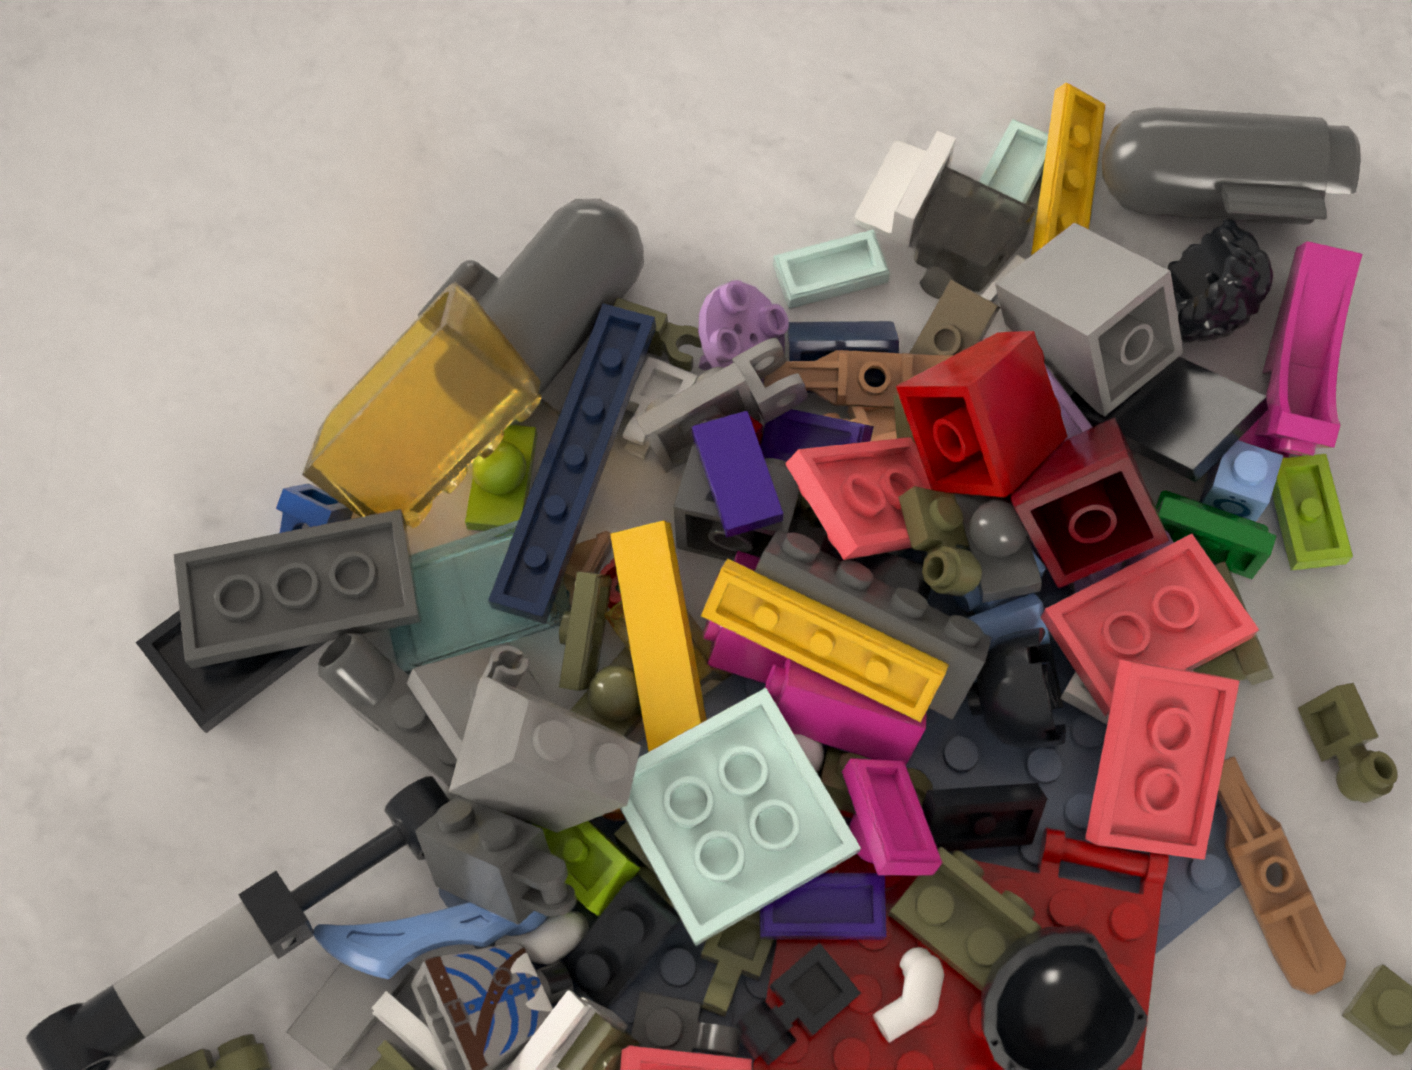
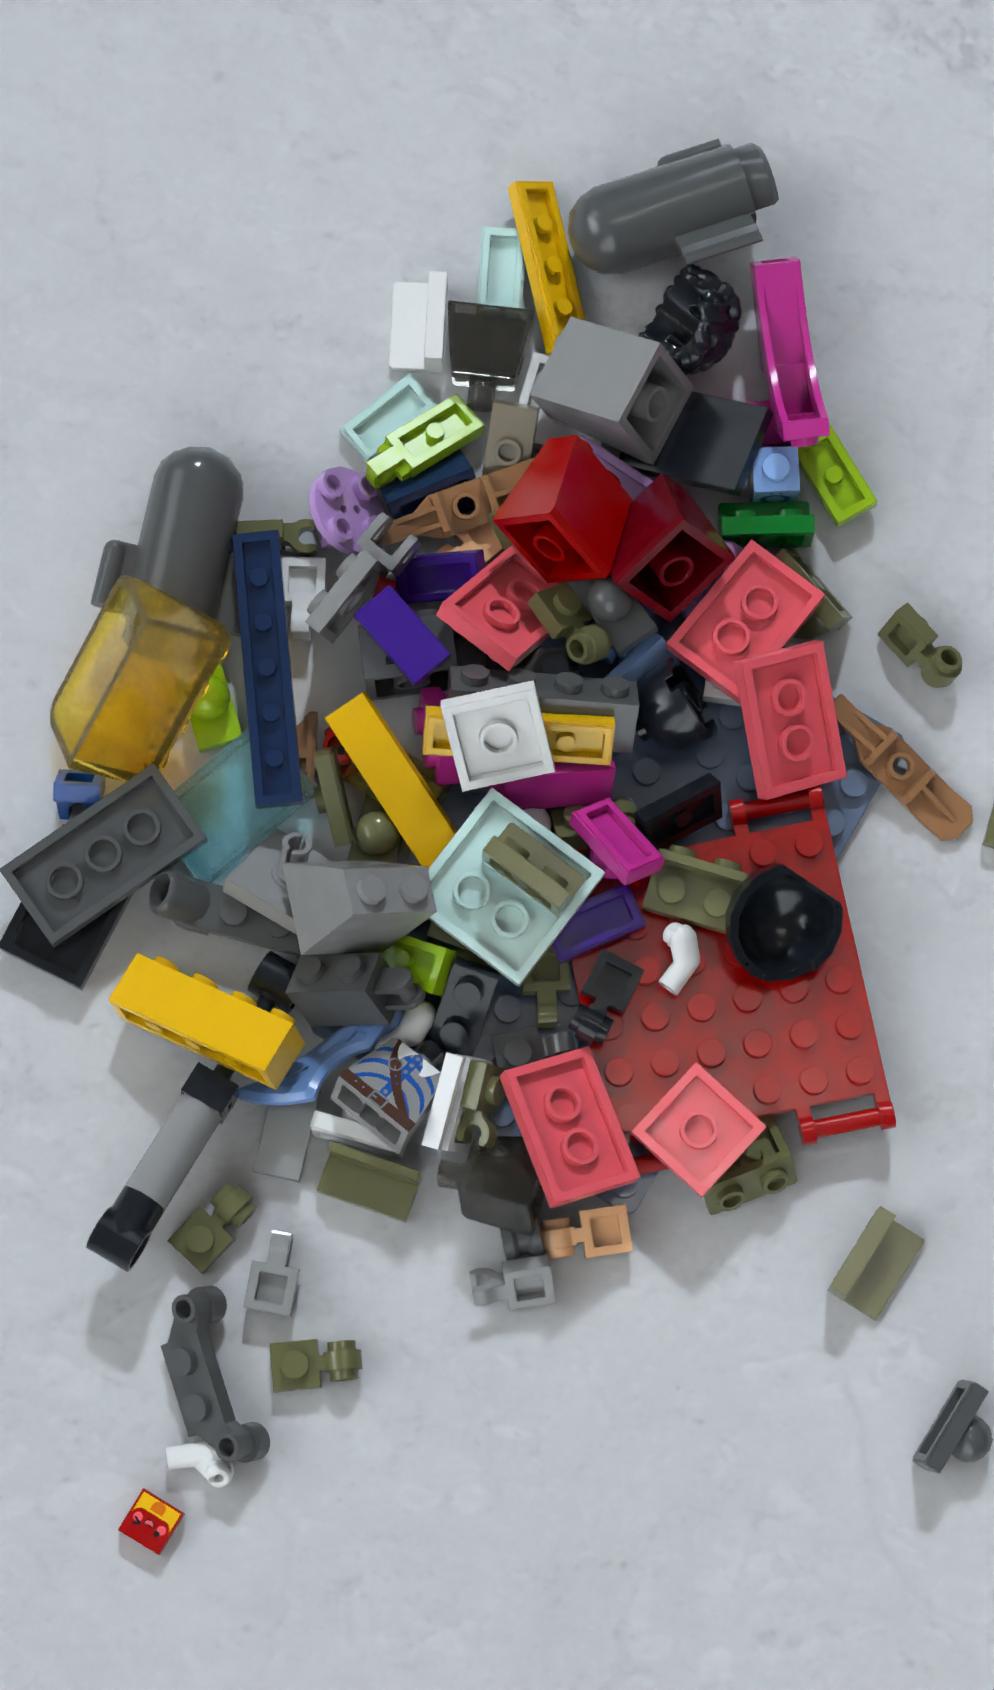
camera: 25 degrees left, 10 degrees up
(316, 828) = (207, 1019): none -> yellow brick
(772, 804) = (533, 868): none -> olive bracket
(796, 625) = (497, 735): none -> white plate
(856, 299) = (424, 442): none -> lime hinge

